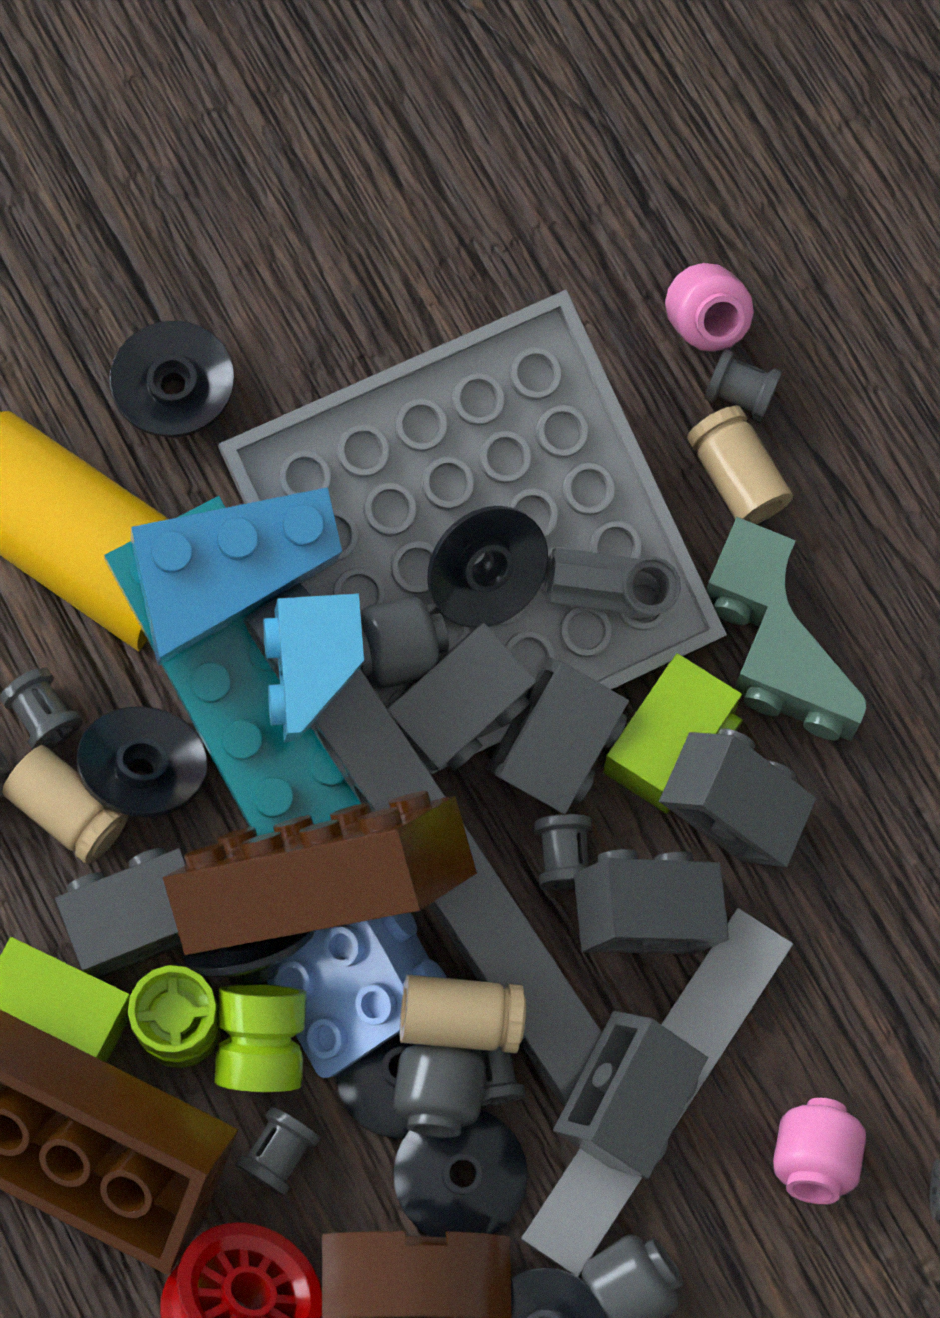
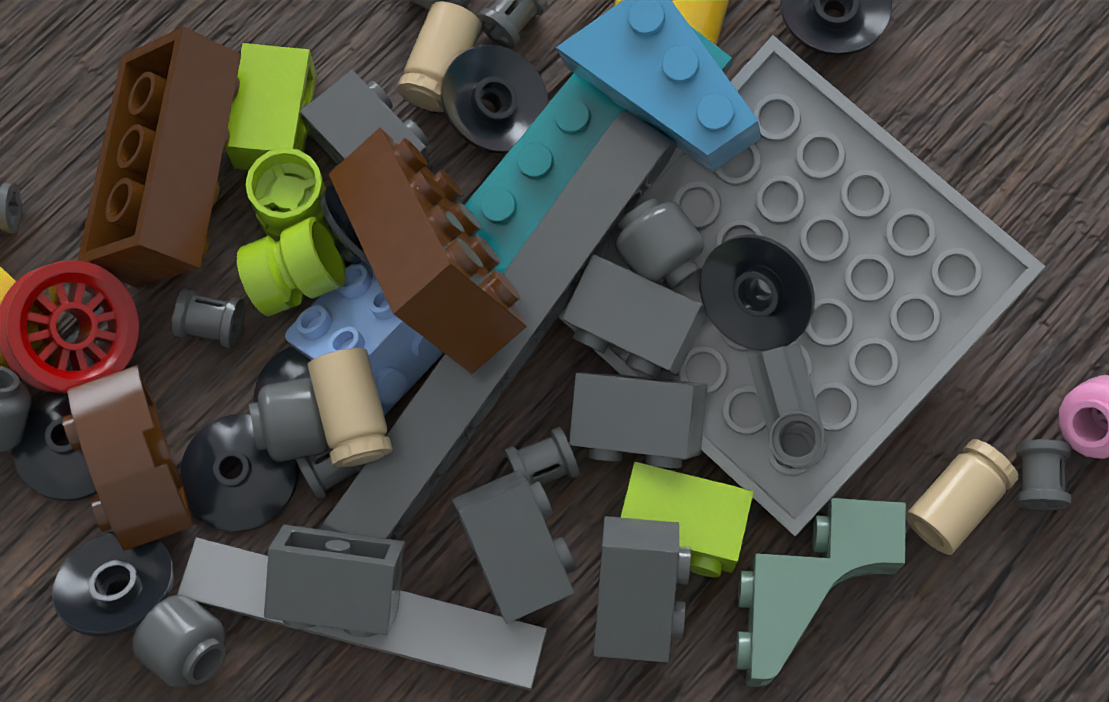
camera: 75 degrees right, 0 degrees up
(317, 656) = (602, 168): medium azure slope -> none

